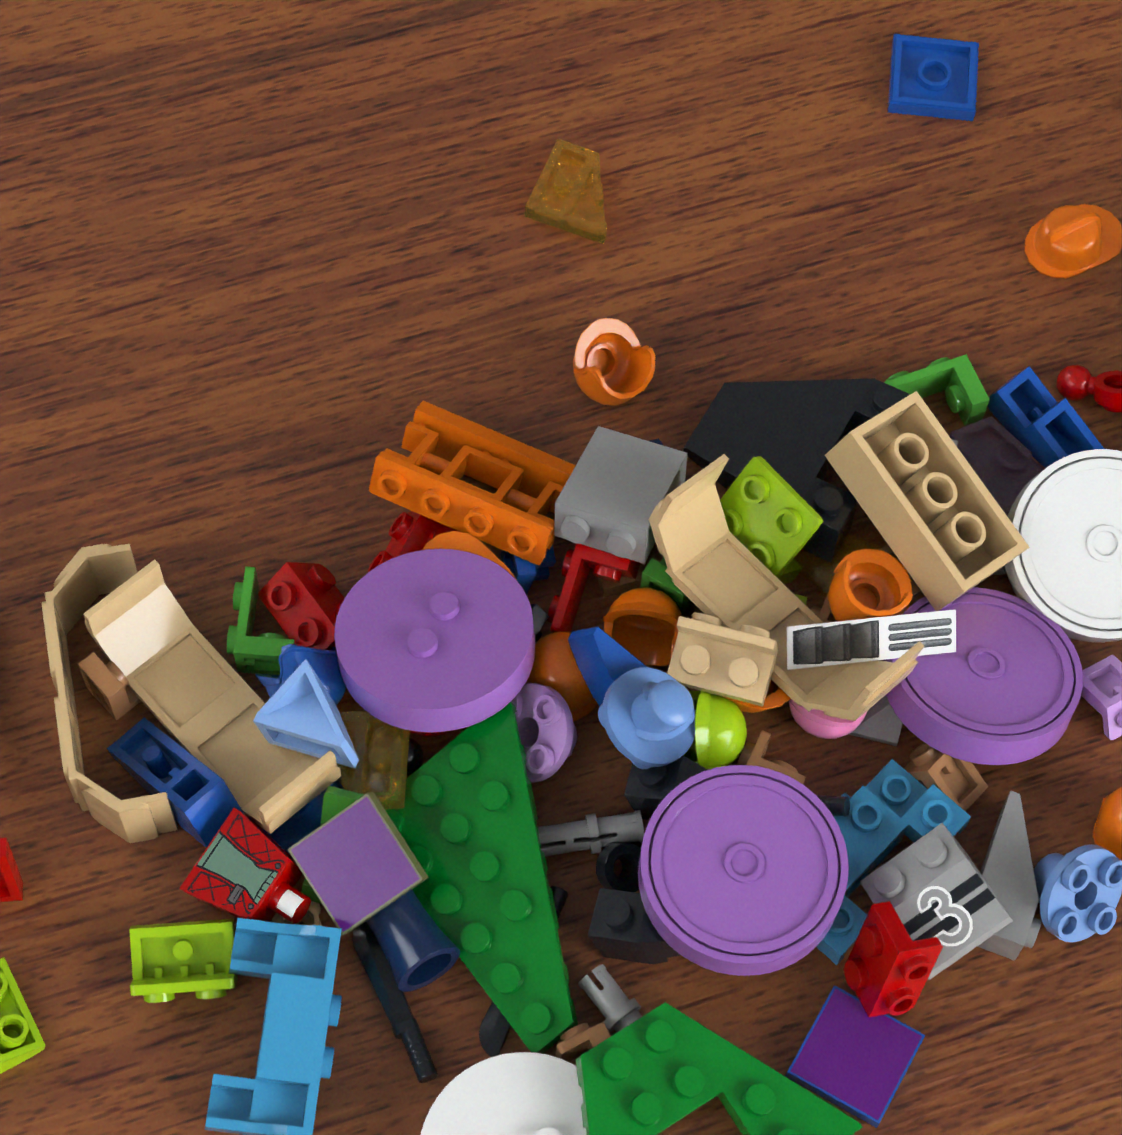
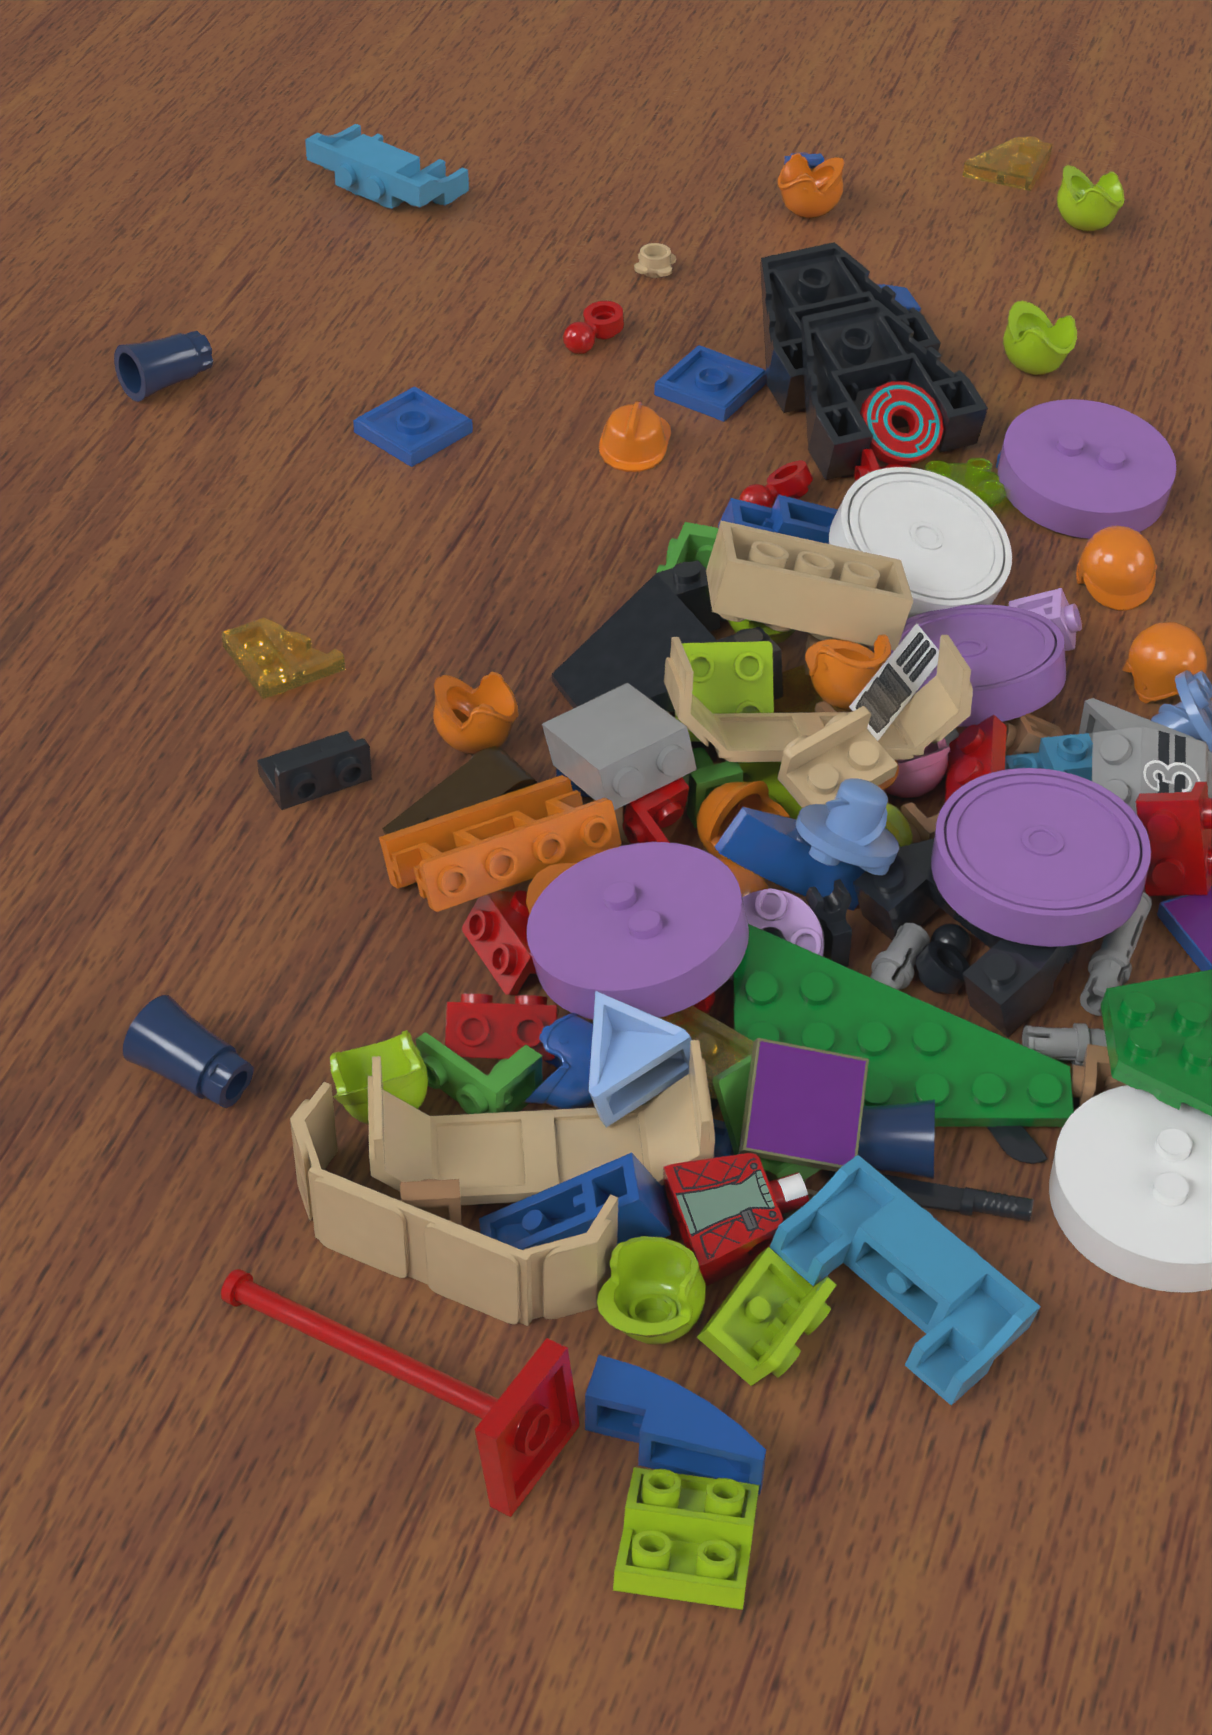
camera: 50 degrees left, 20 degrees down
(46, 957) = (670, 1424): none -> blue slope
(133, 435) = (186, 1053): none -> dark blue plant
(136, 873) = (652, 1290): none -> lime helmet
(198, 569) = (402, 1074): none -> lime helmet
(479, 304) = (316, 769): none -> black bracket
(544, 424) = (482, 778): none -> dark brown door
(588, 760) = (832, 916): none -> black plate
(729, 990) = (1111, 963): none -> light grey pin
(853, 758) = (976, 753): none -> red bracket

